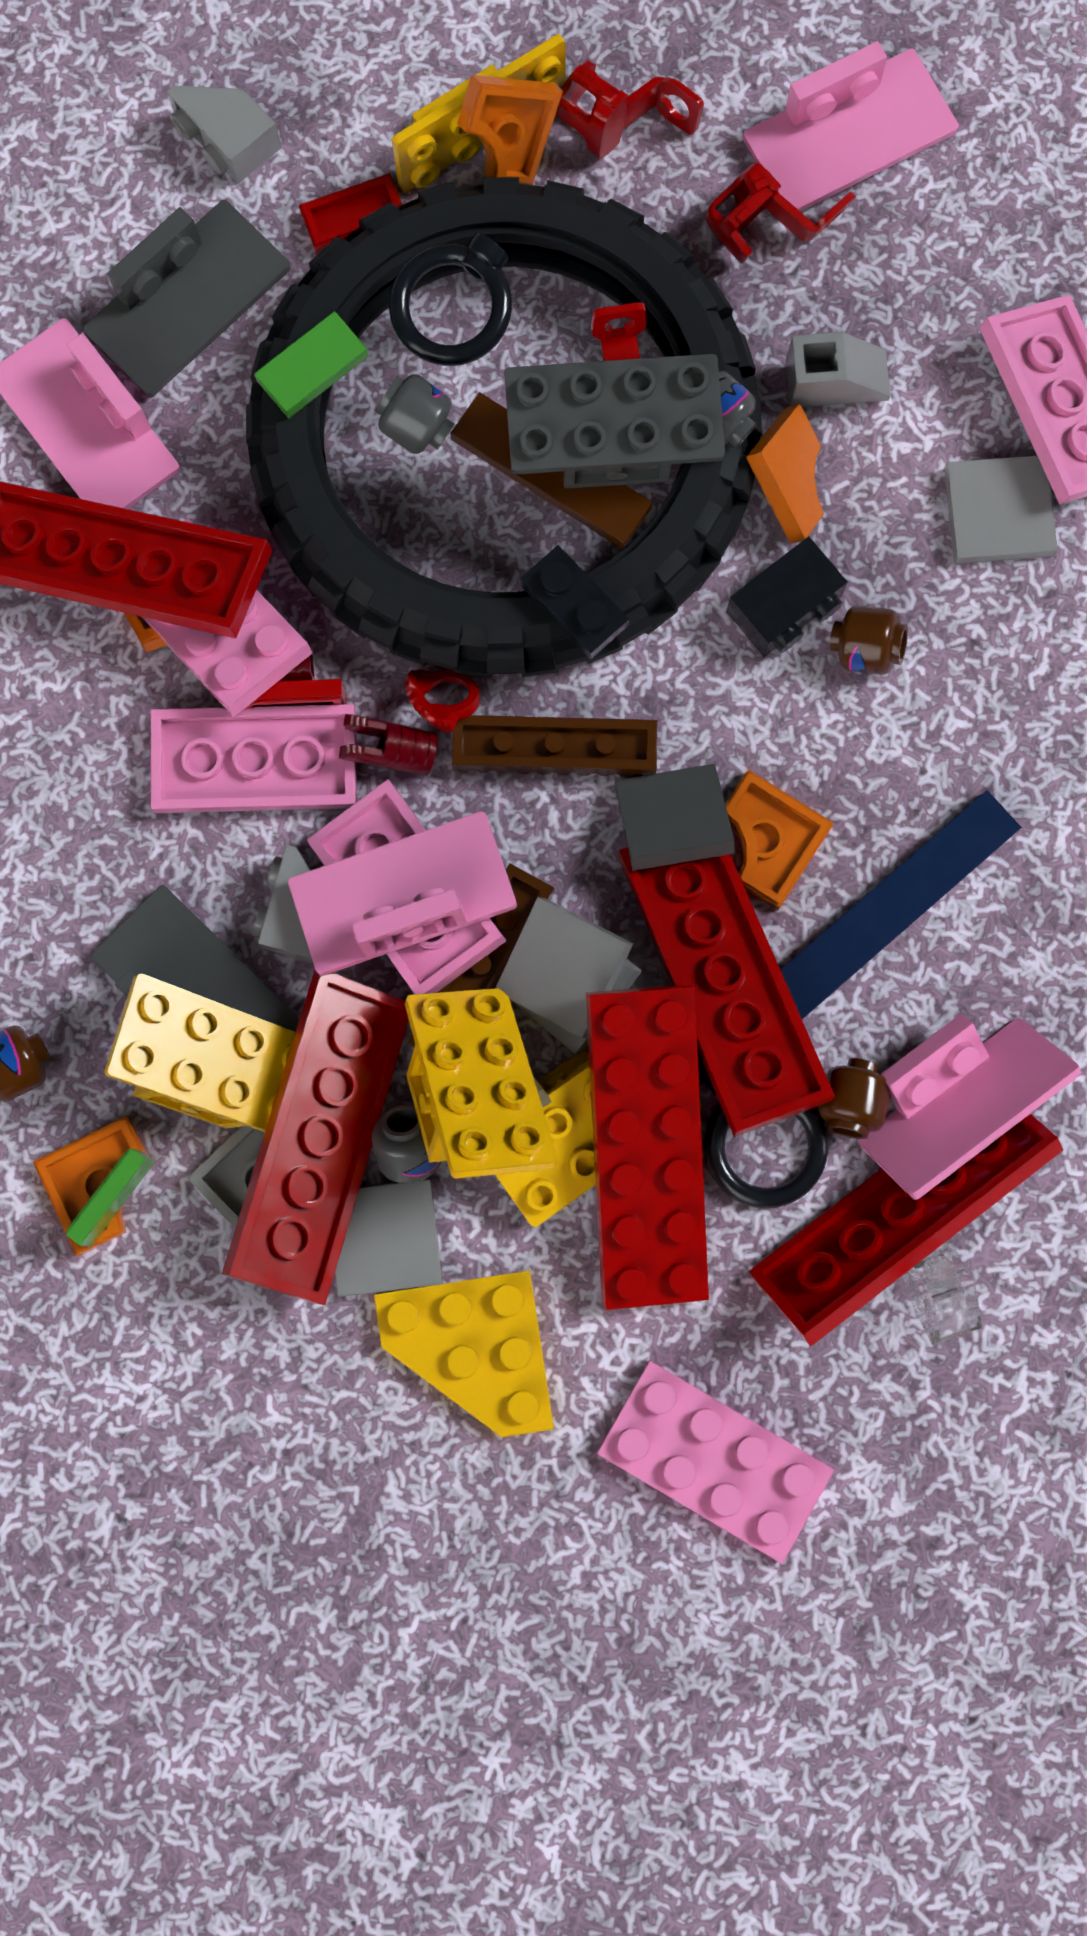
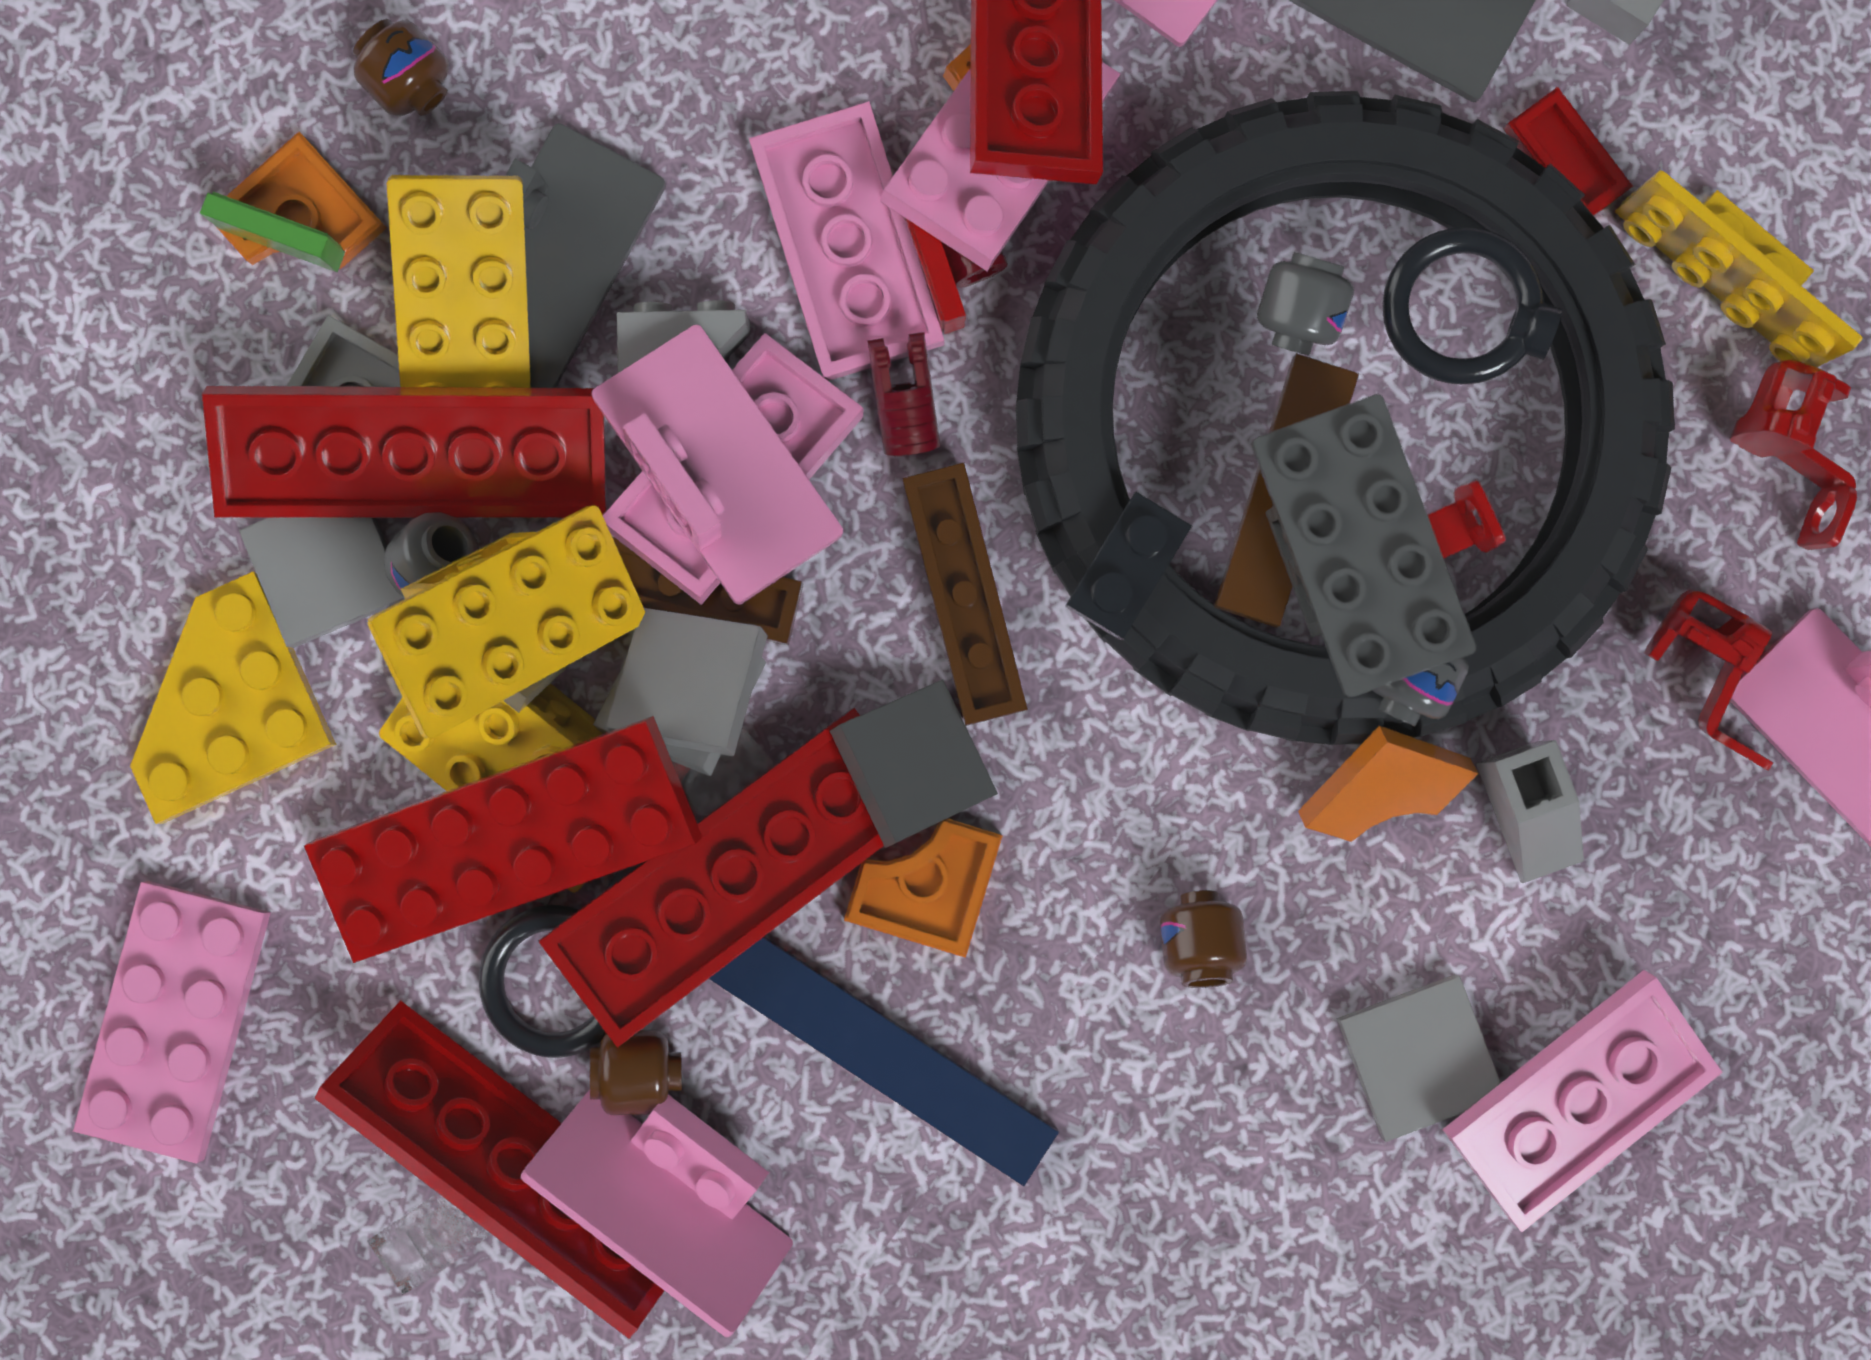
camera: 70 degrees right, 5 degrees up
(311, 364) = (1336, 159): bright green tile -> none
(440, 716) = (955, 449): red piece -> none
(512, 122) = (1732, 313): orange tile -> none
(787, 598) = (1227, 825): black brick -> none

